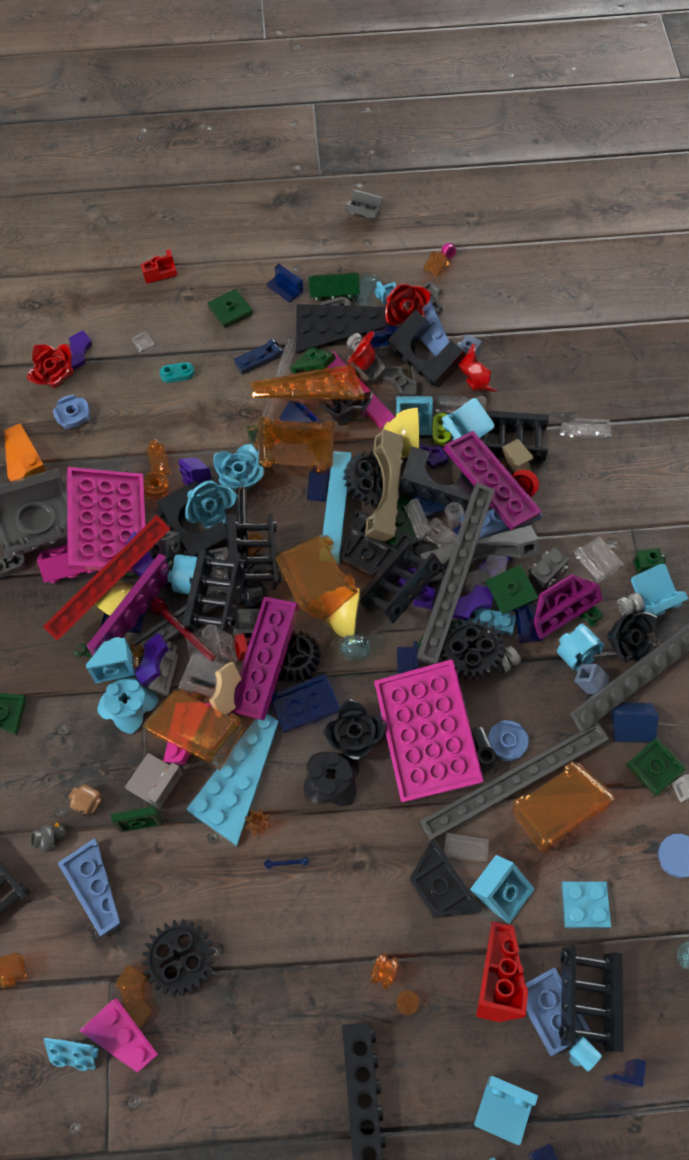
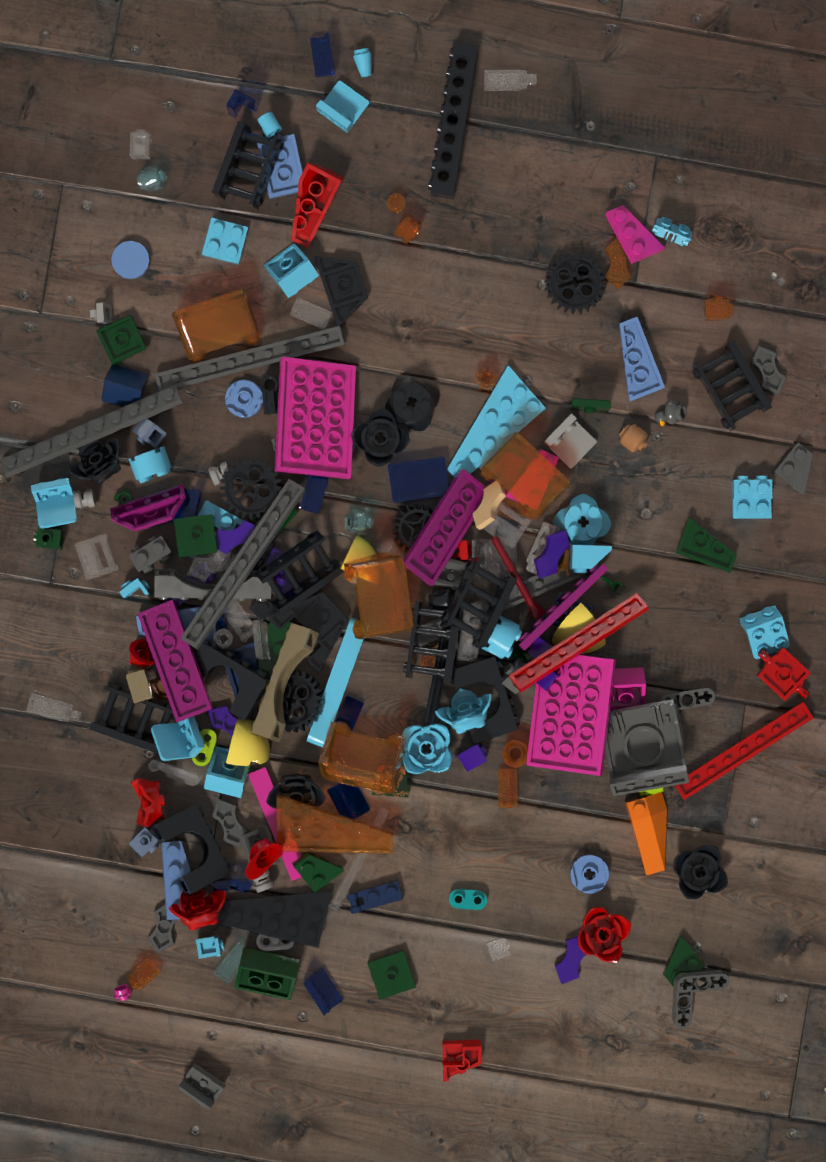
camera: 170 degrees left, 25 degrees up
(268, 863) = (483, 343): clear blue hinge -> none
(556, 538) = (130, 587): none -> medium azure bracket

